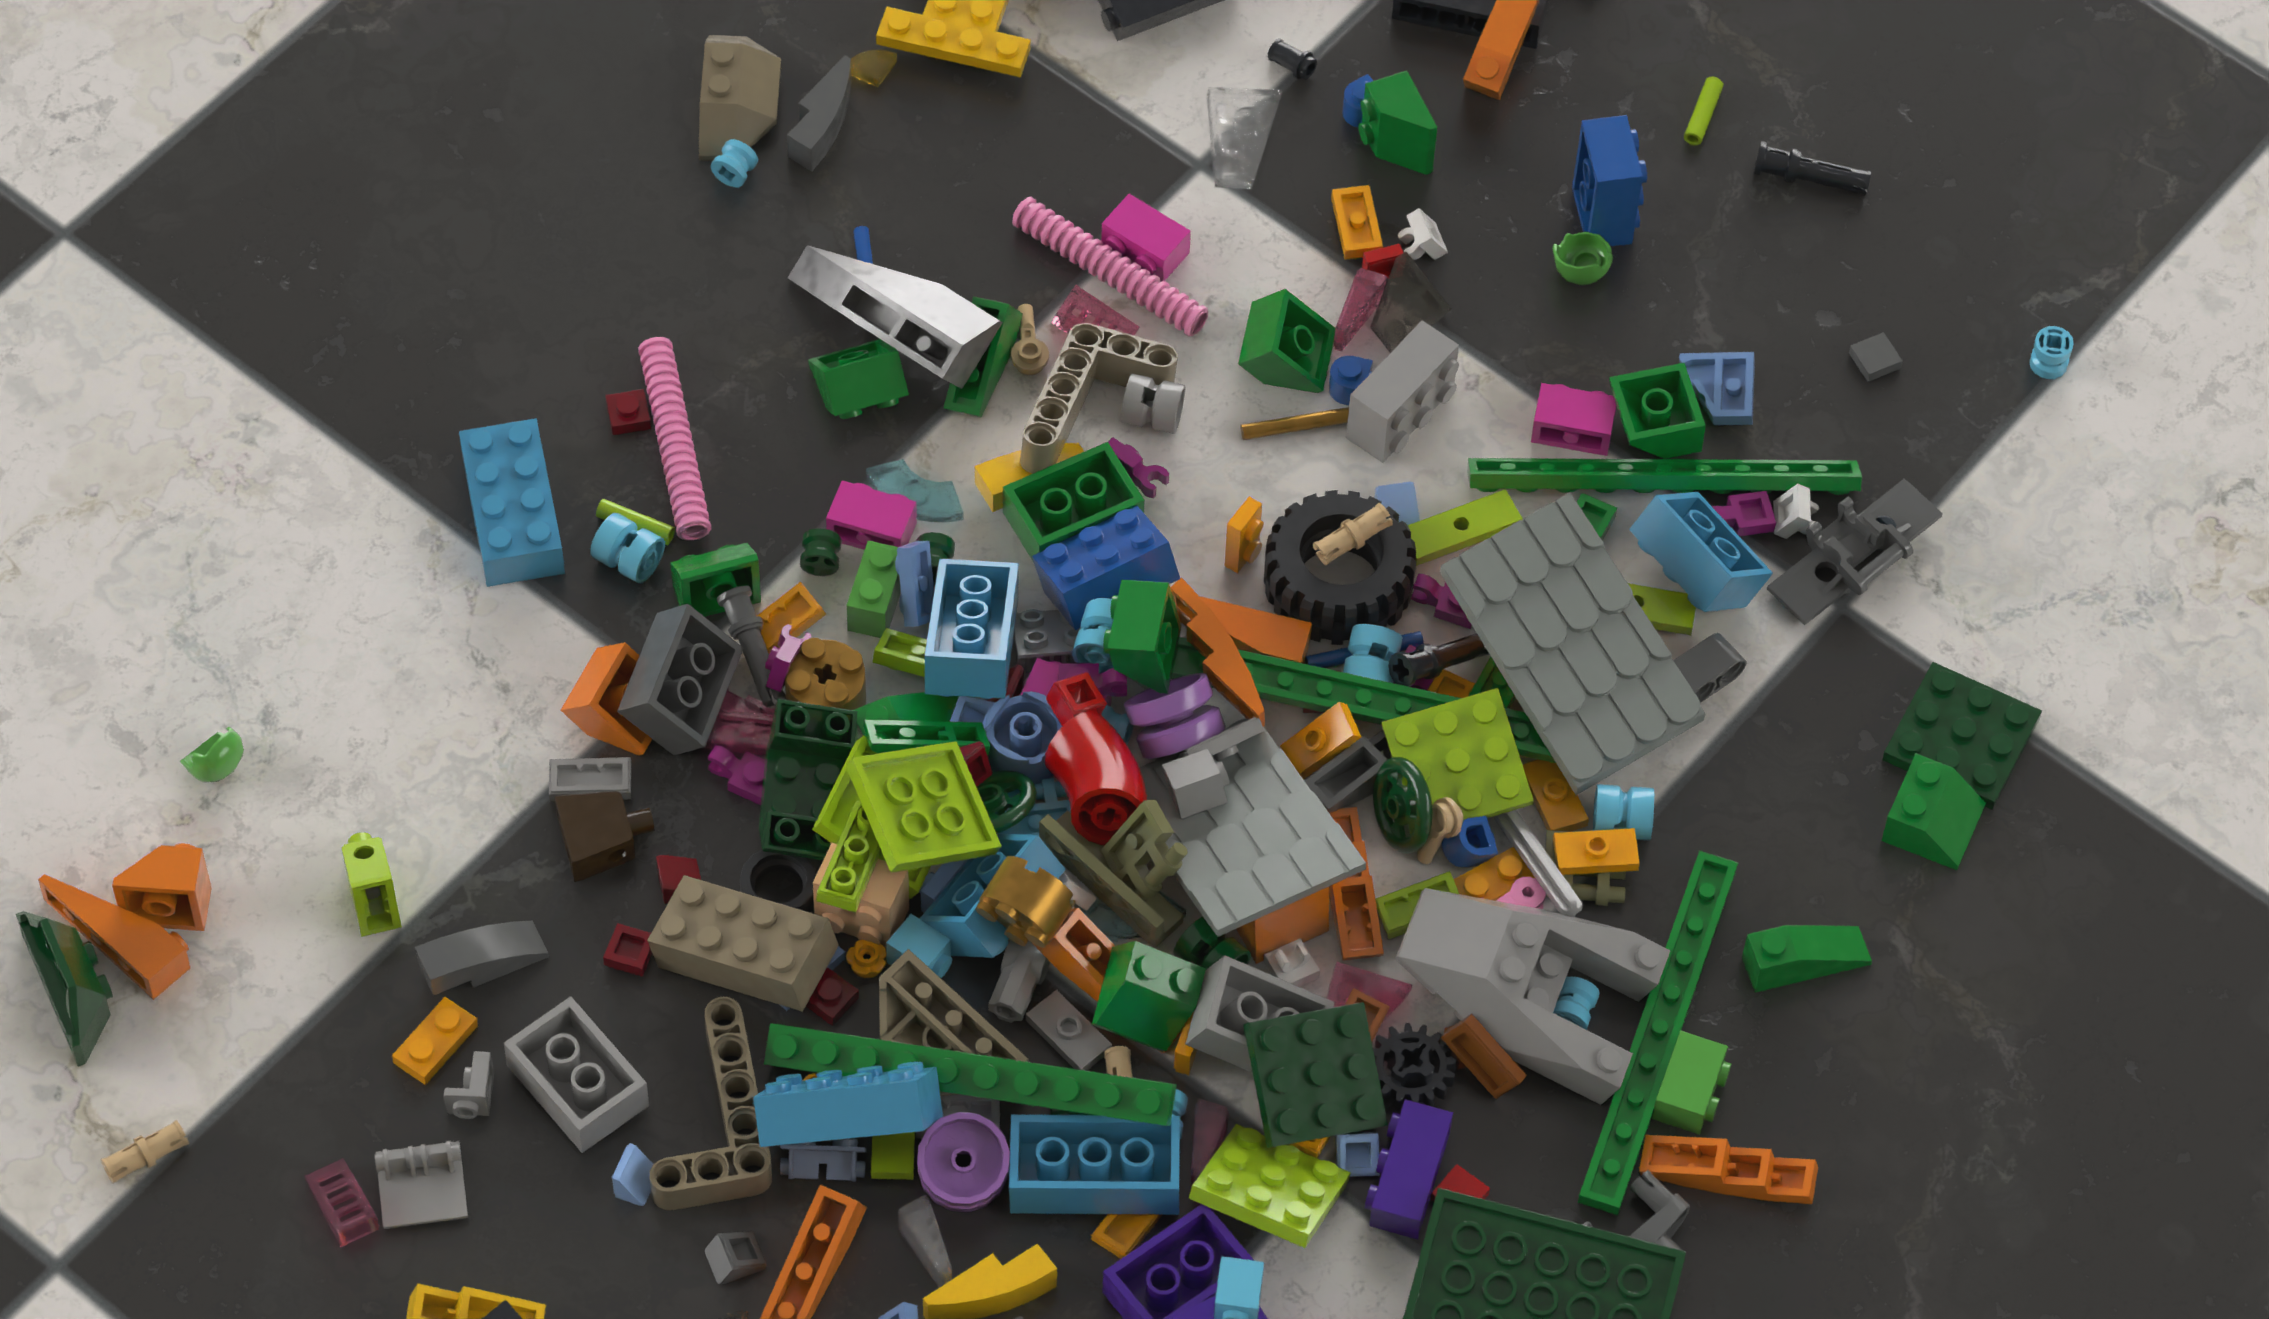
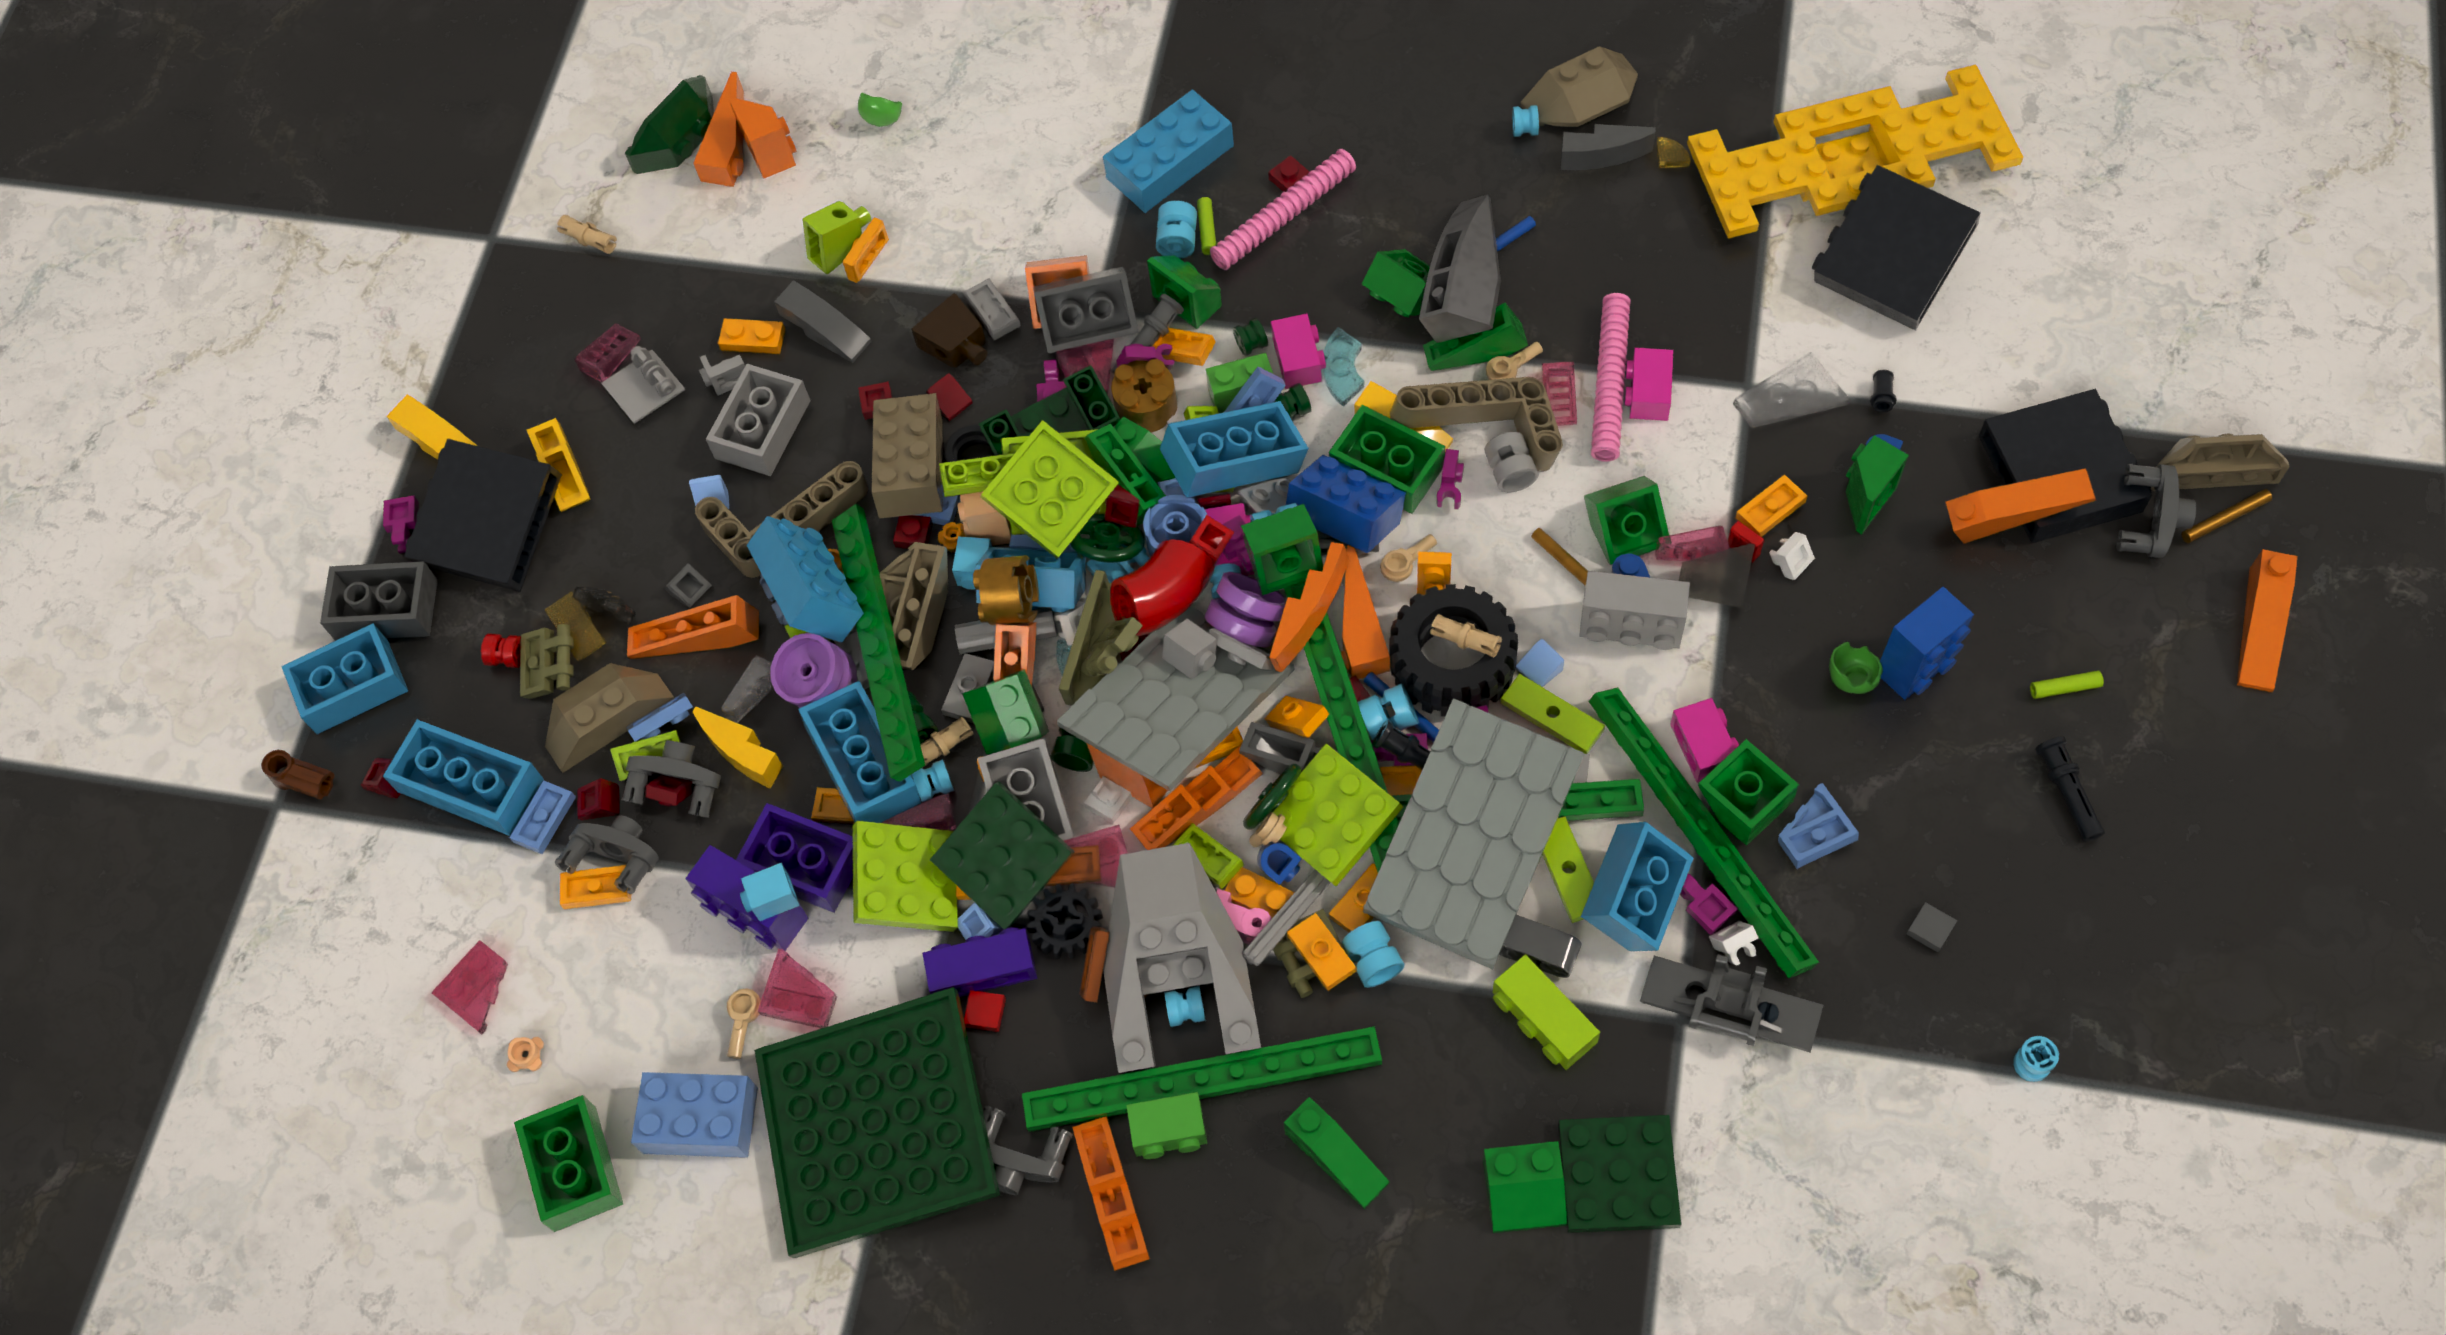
camera: 70 degrees right, 5 degrees up
(409, 864) = (865, 250): none -> light orange plate
(1197, 565) = (1398, 564): none -> tan plate
(1771, 703) = (1544, 1013): none -> lime brick

